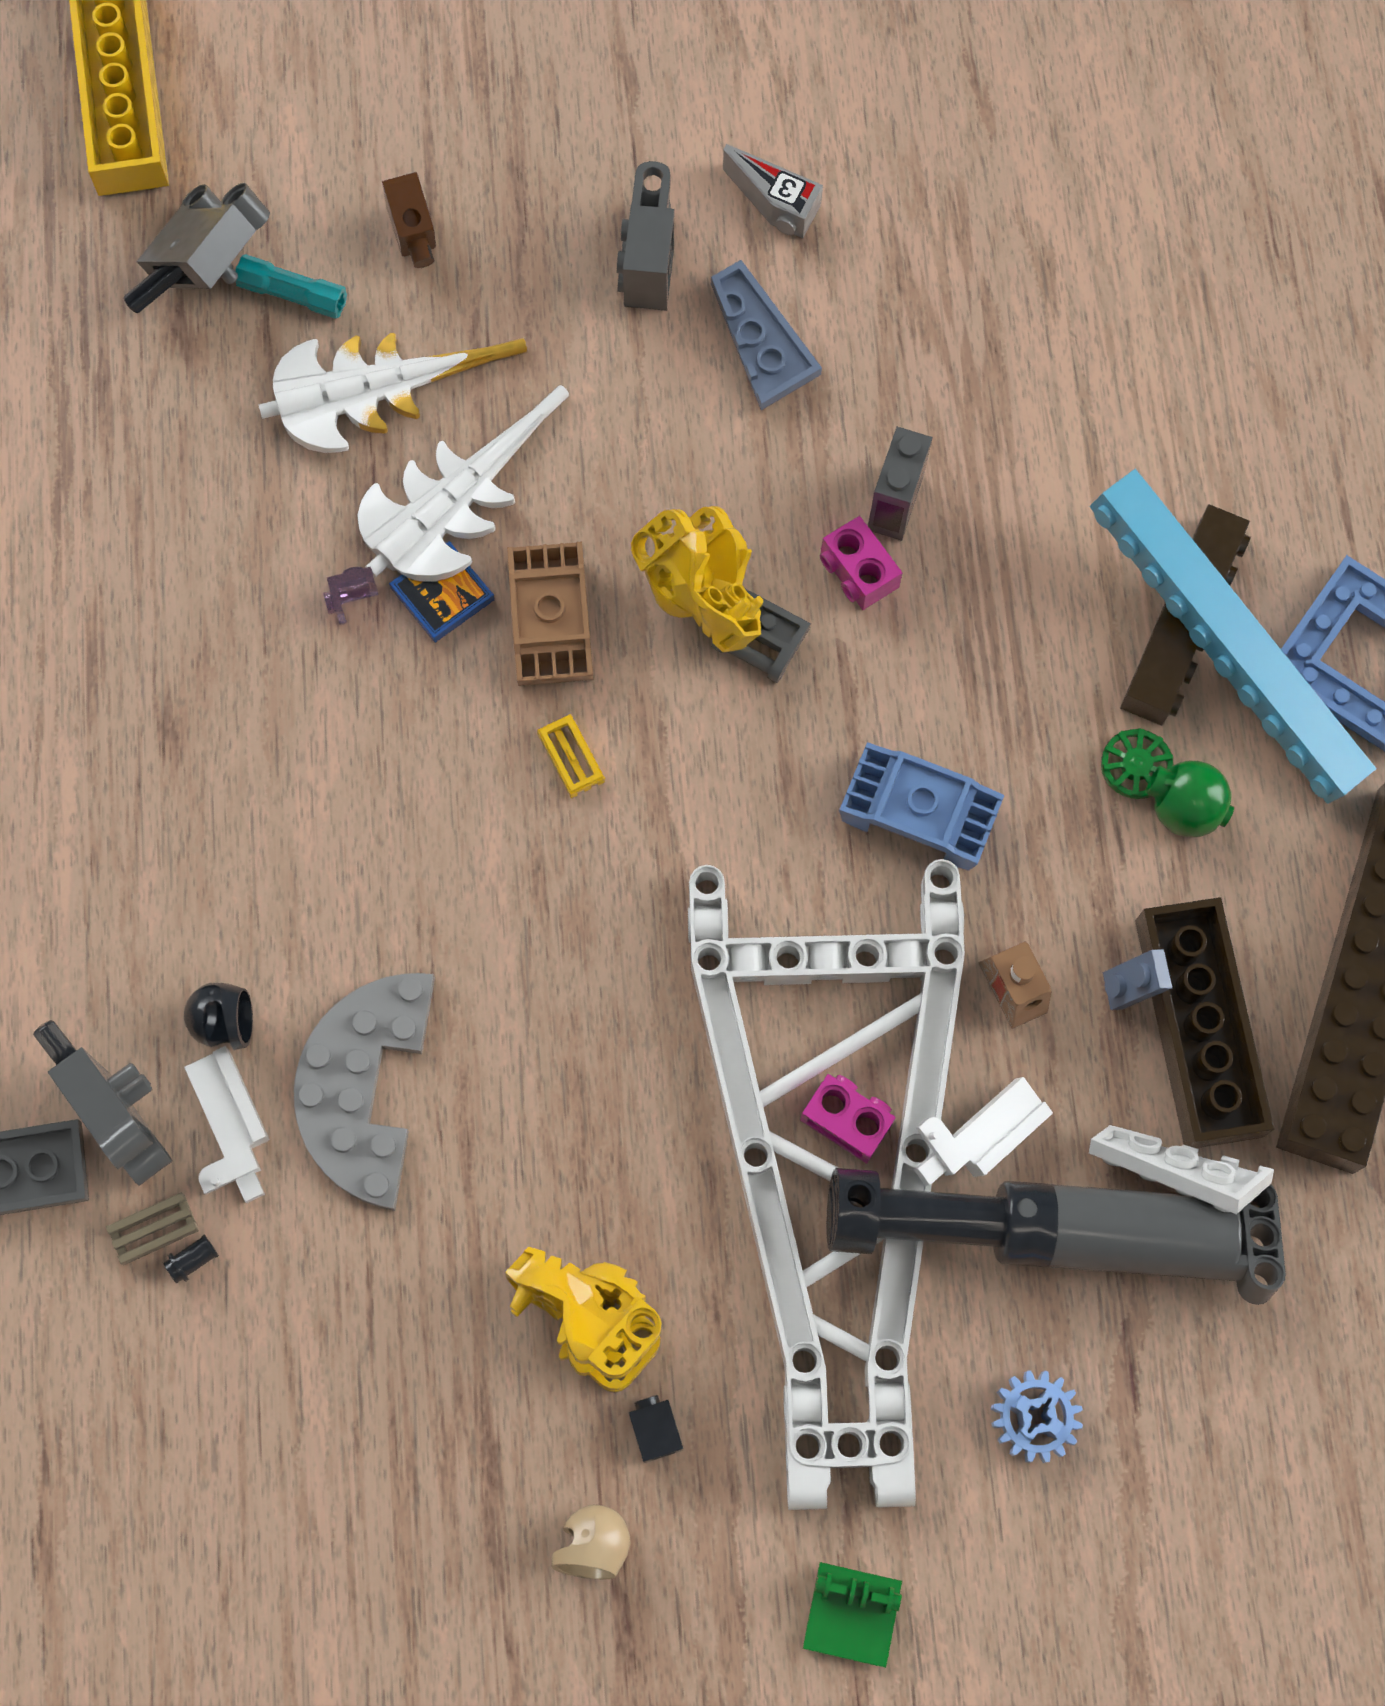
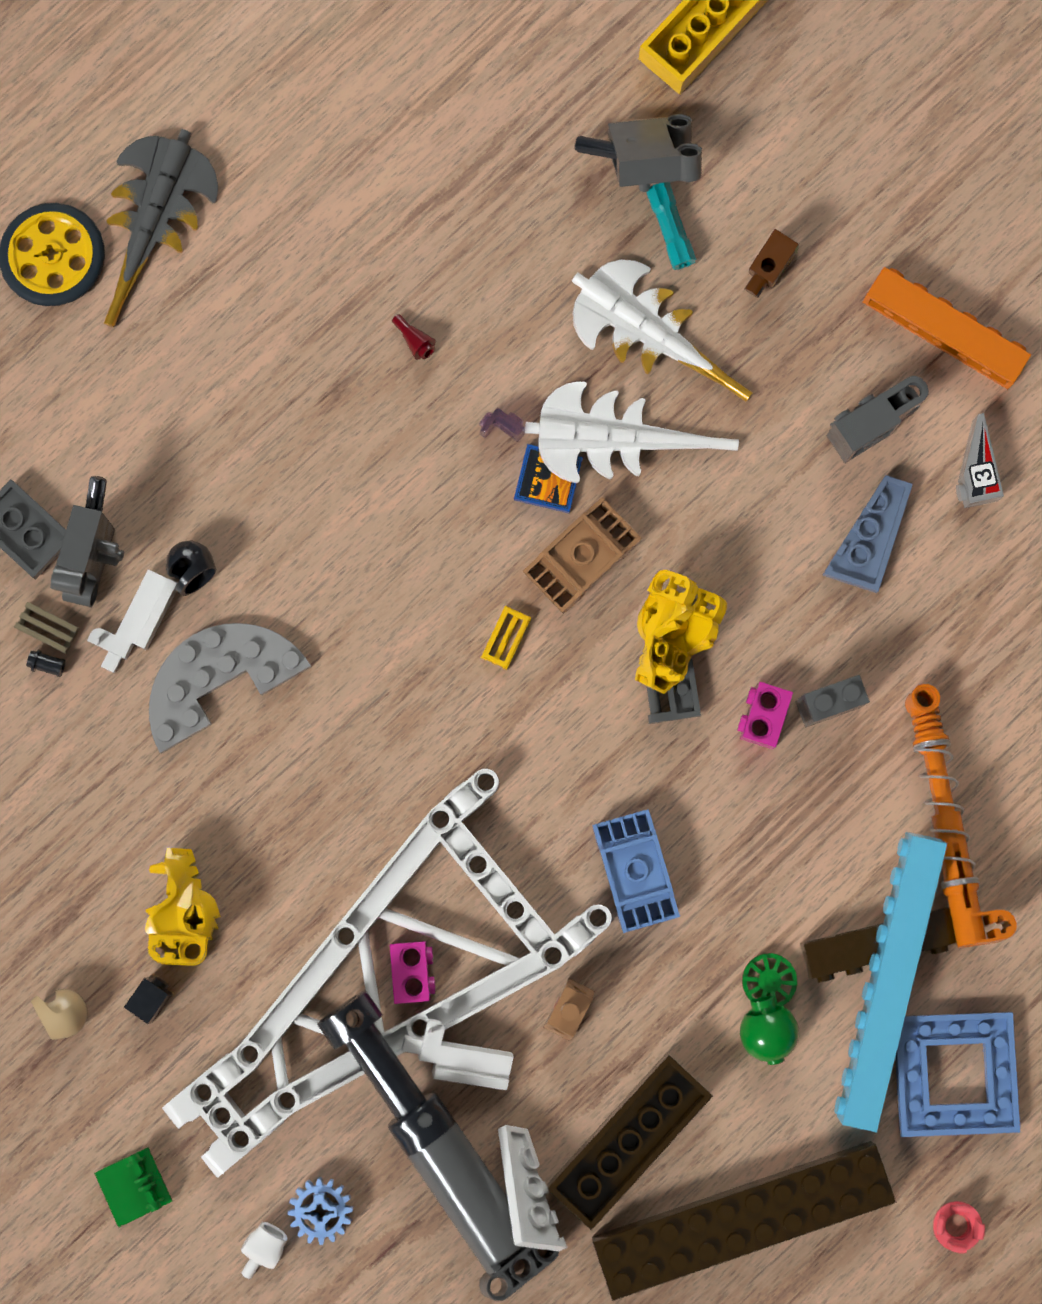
camera: 55 degrees right, 10 degrees up
(191, 609) = (419, 343): none -> dark red cone
(613, 120) = (946, 327): none -> orange brick
(1031, 1514) = (263, 1248): none -> white piece
(1137, 979) = (624, 1081): sand blue plate -> none
(1183, 498) = (958, 882): none -> orange piece

